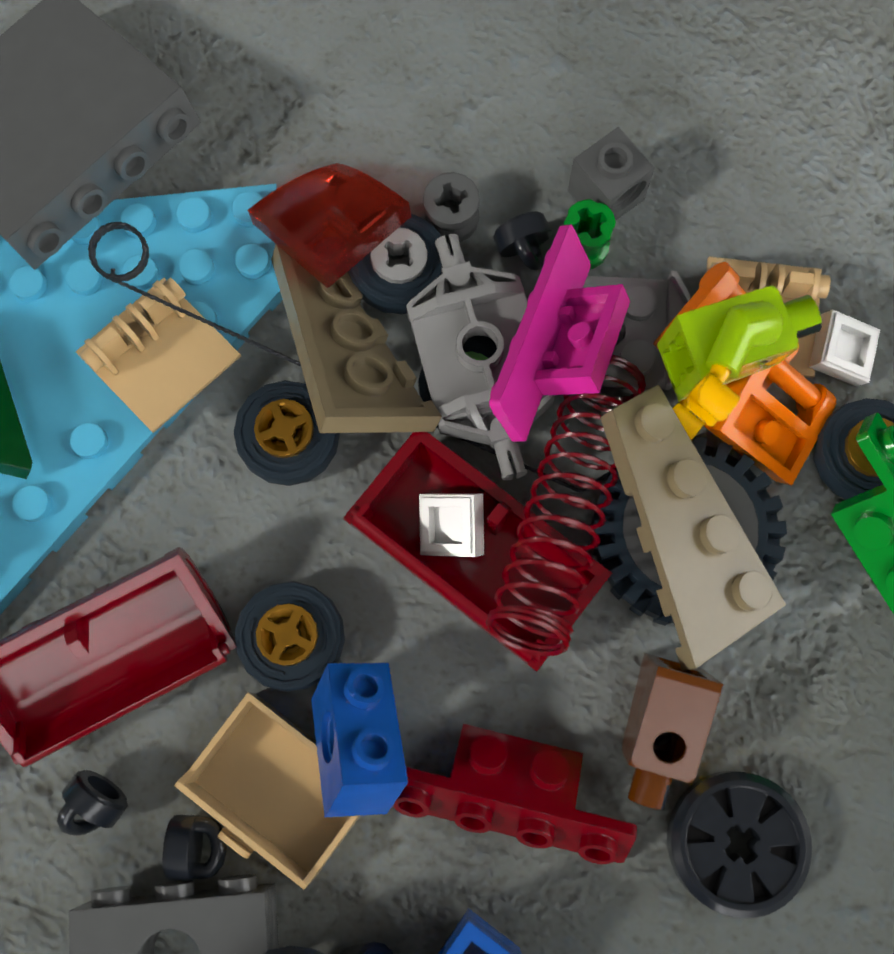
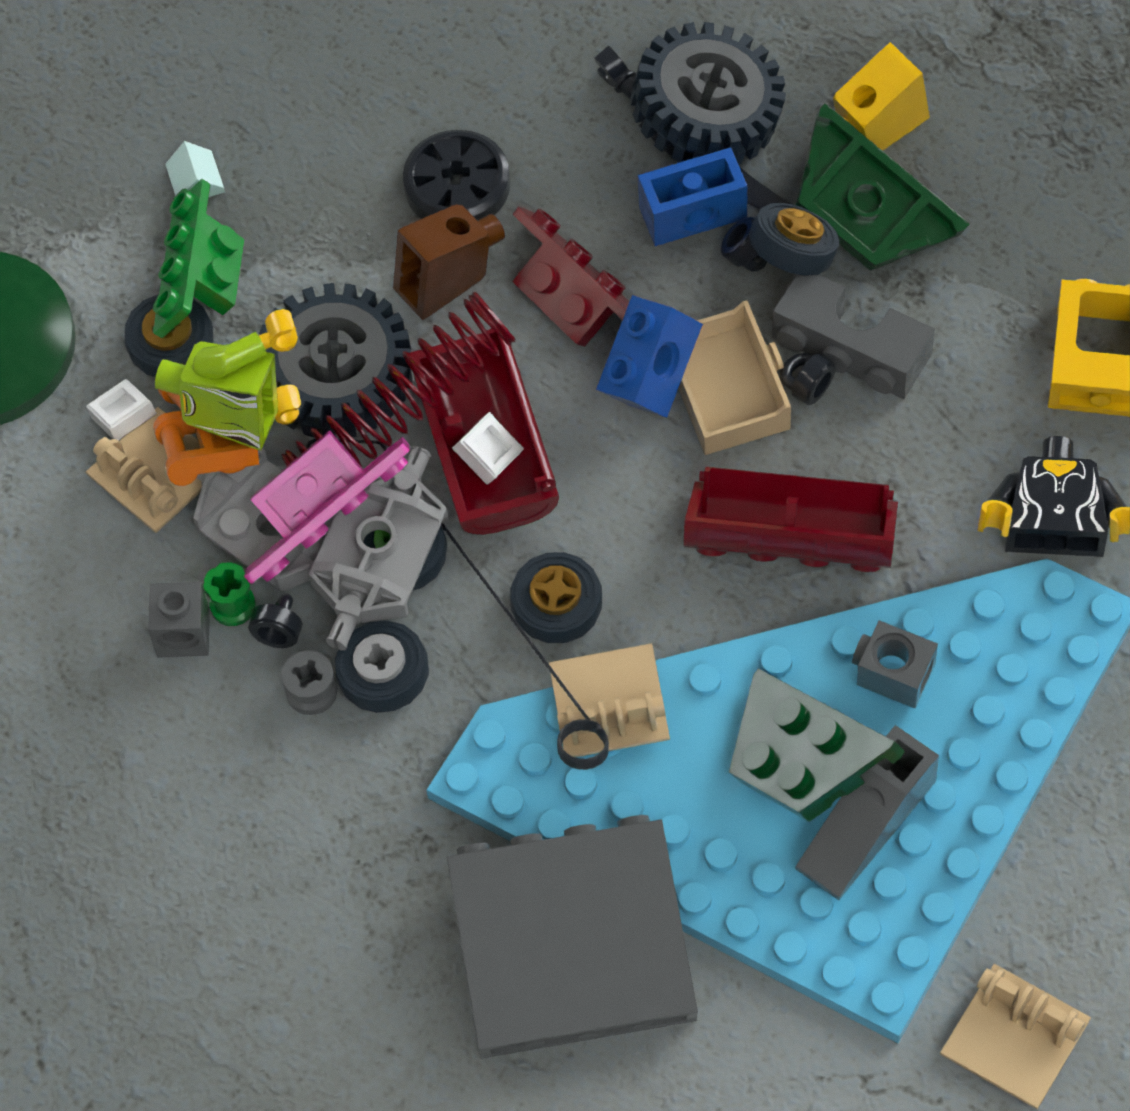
camera: 145 degrees left, 15 degrees down
(92, 799) = (856, 442): black tile -> none
(270, 626) = (655, 445): black wheel -> none
(330, 218) = (406, 715): clear red plate -> none
(345, 358) = (475, 594): dark tan wing -> none
(699, 549) = (338, 329): dark tan wing -> none

